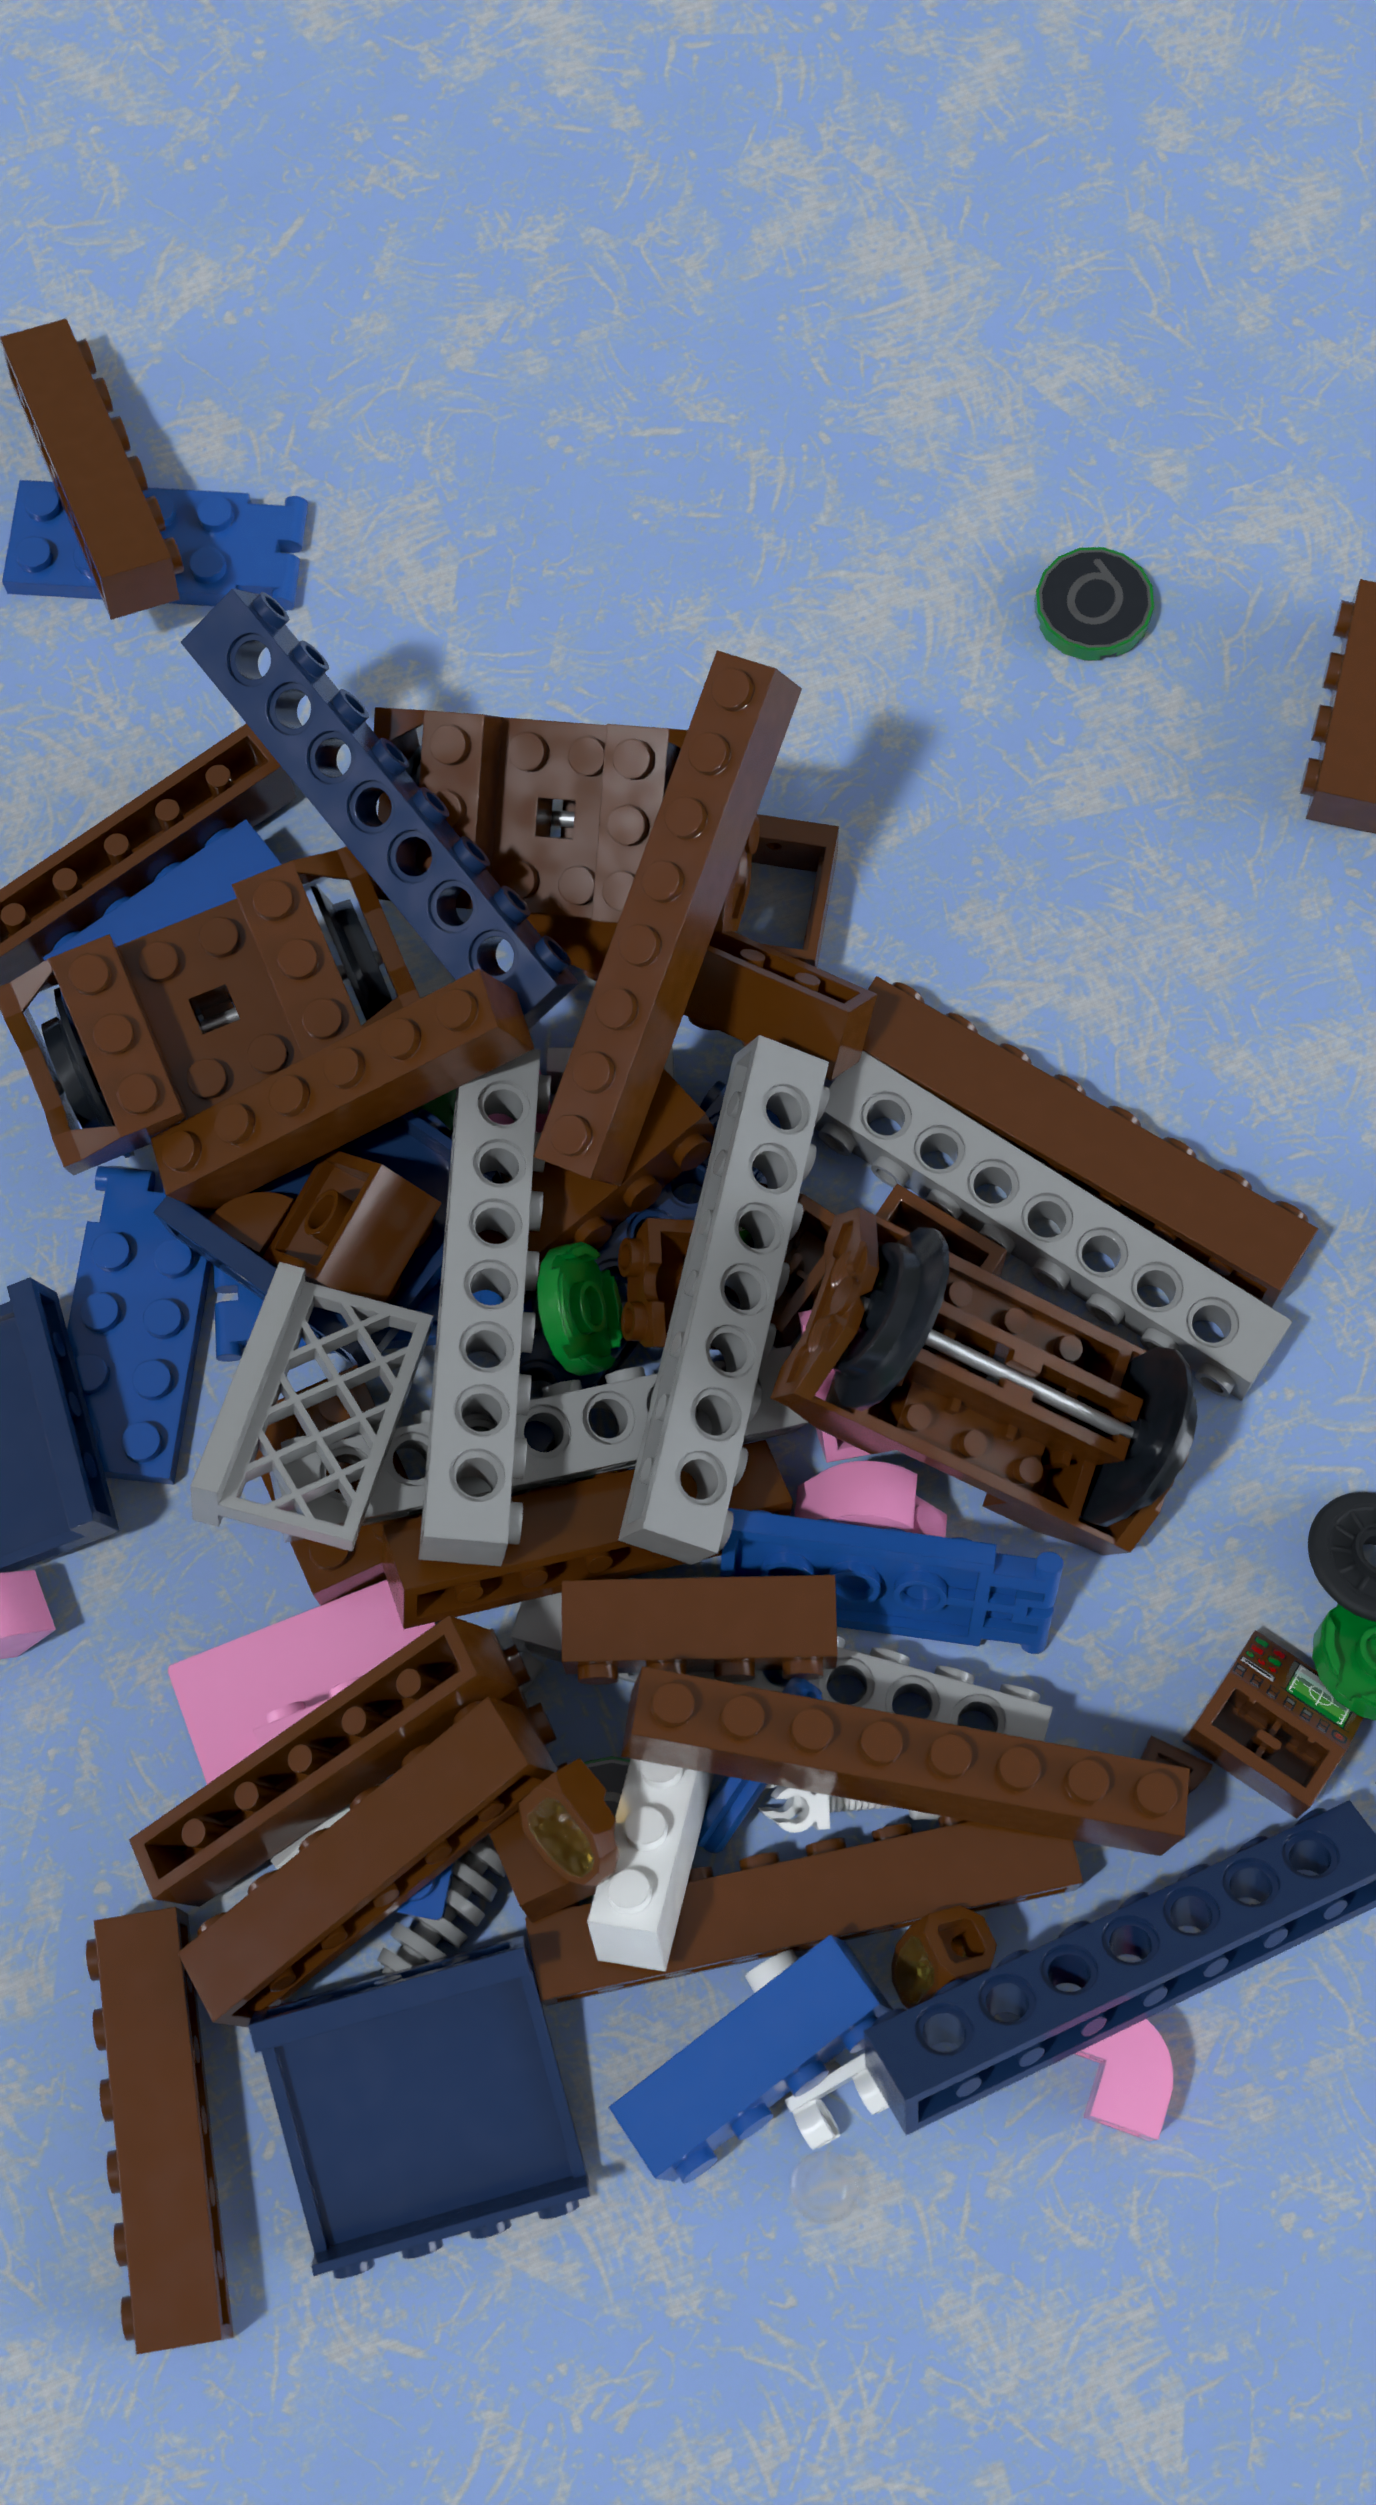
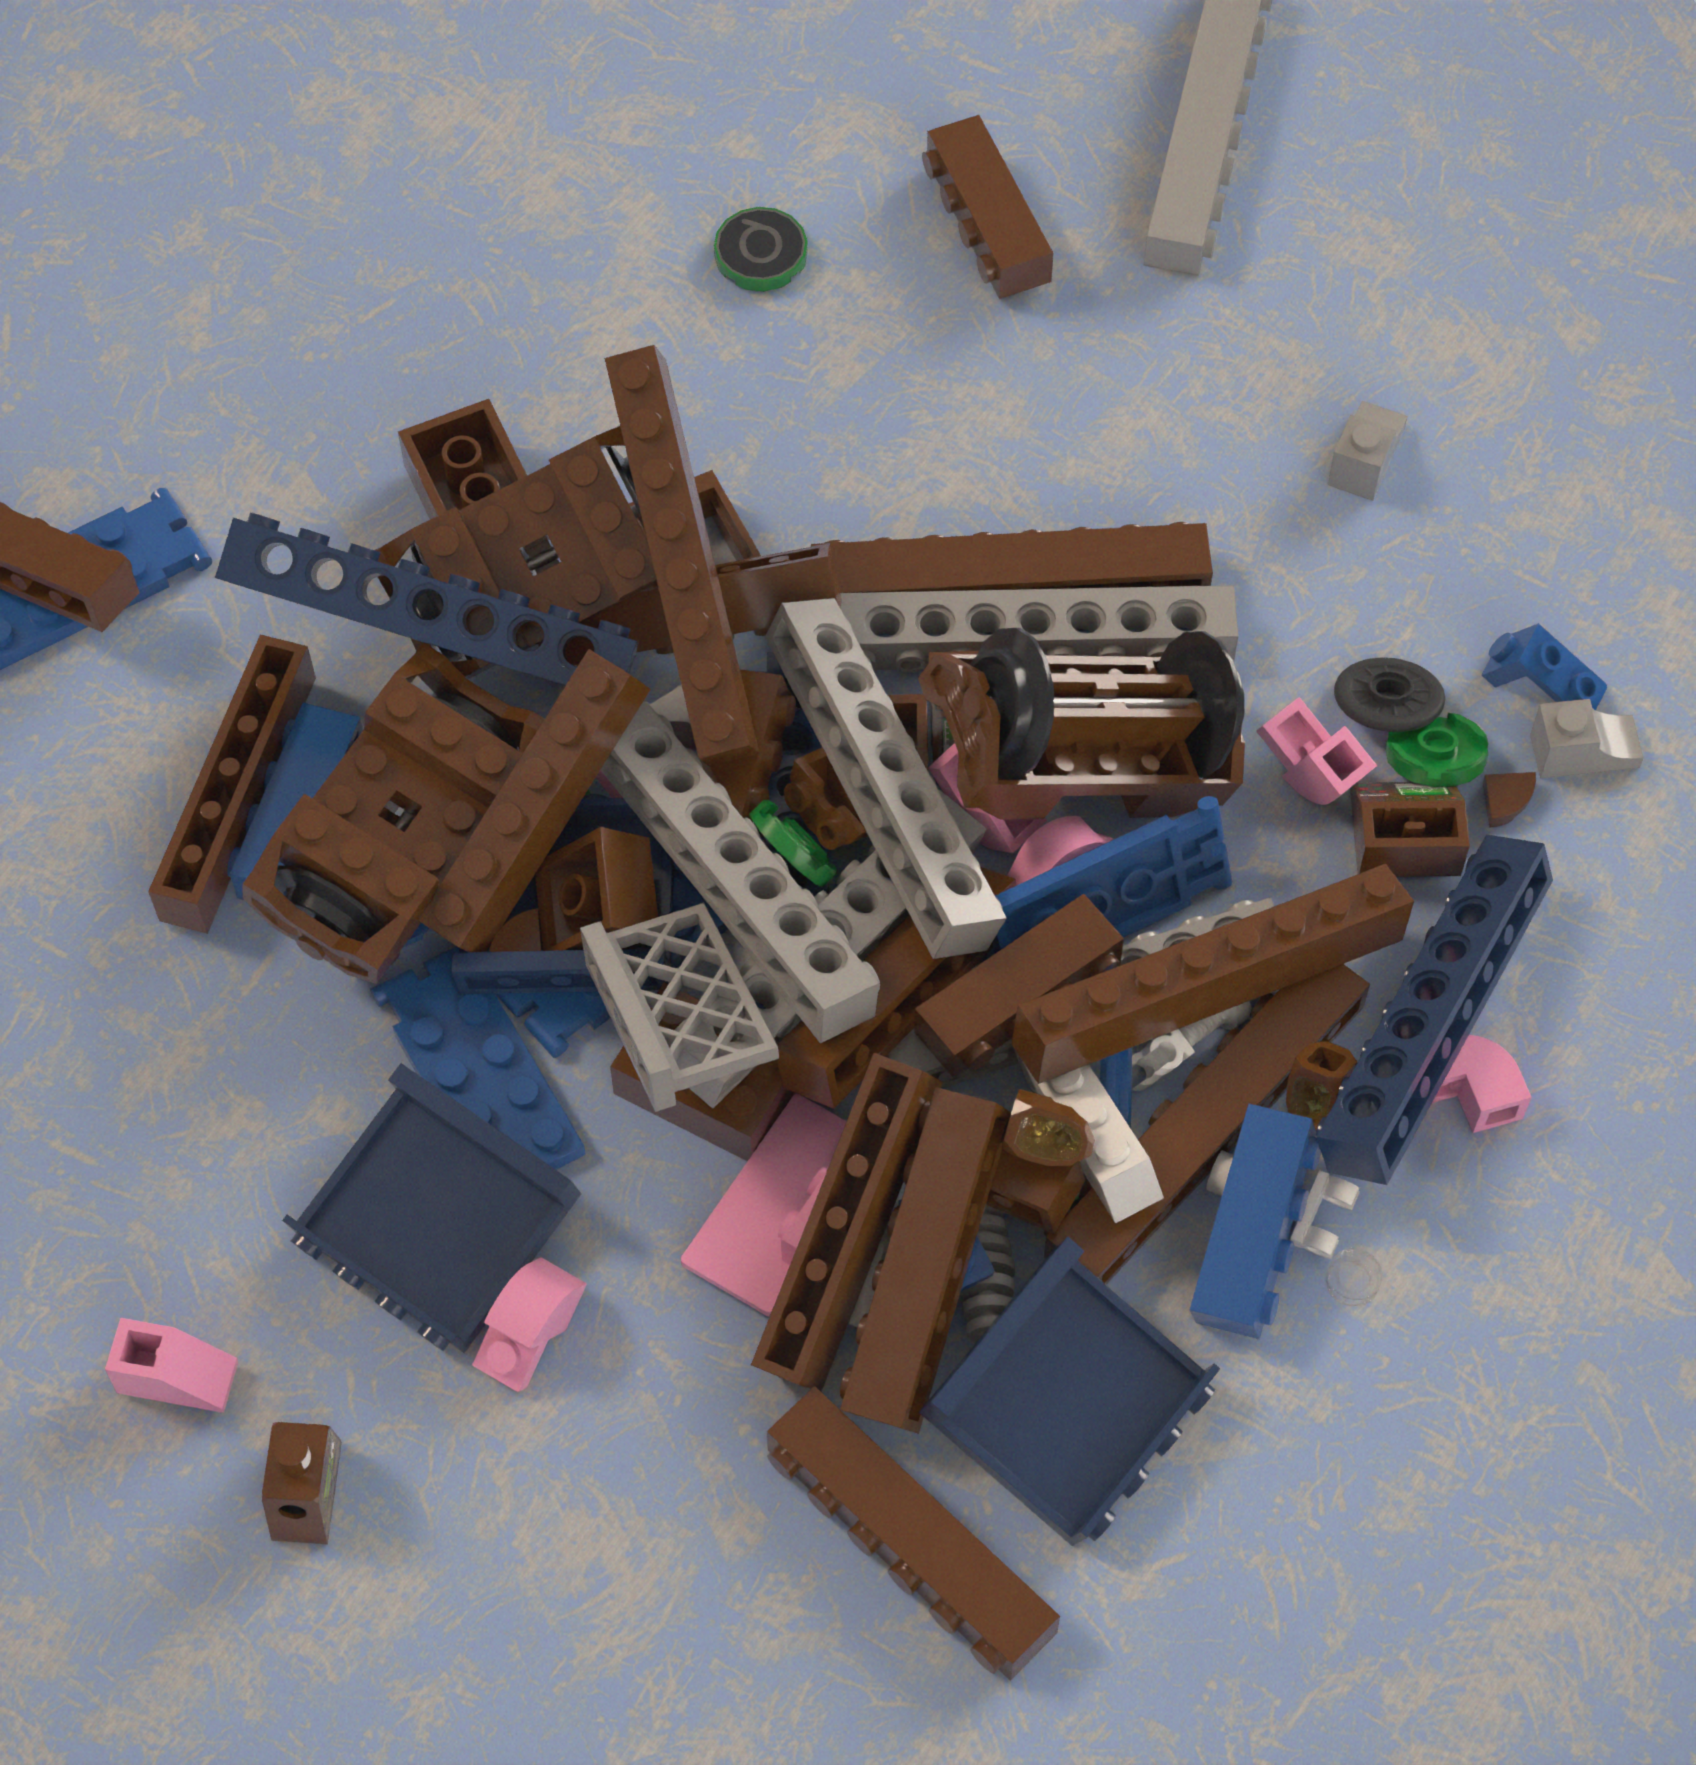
camera: 40 degrees left, 10 degrees down
(593, 658) = (459, 458): none -> reddish brown brick
(1231, 1575) = (1316, 763): none -> bright pink brick

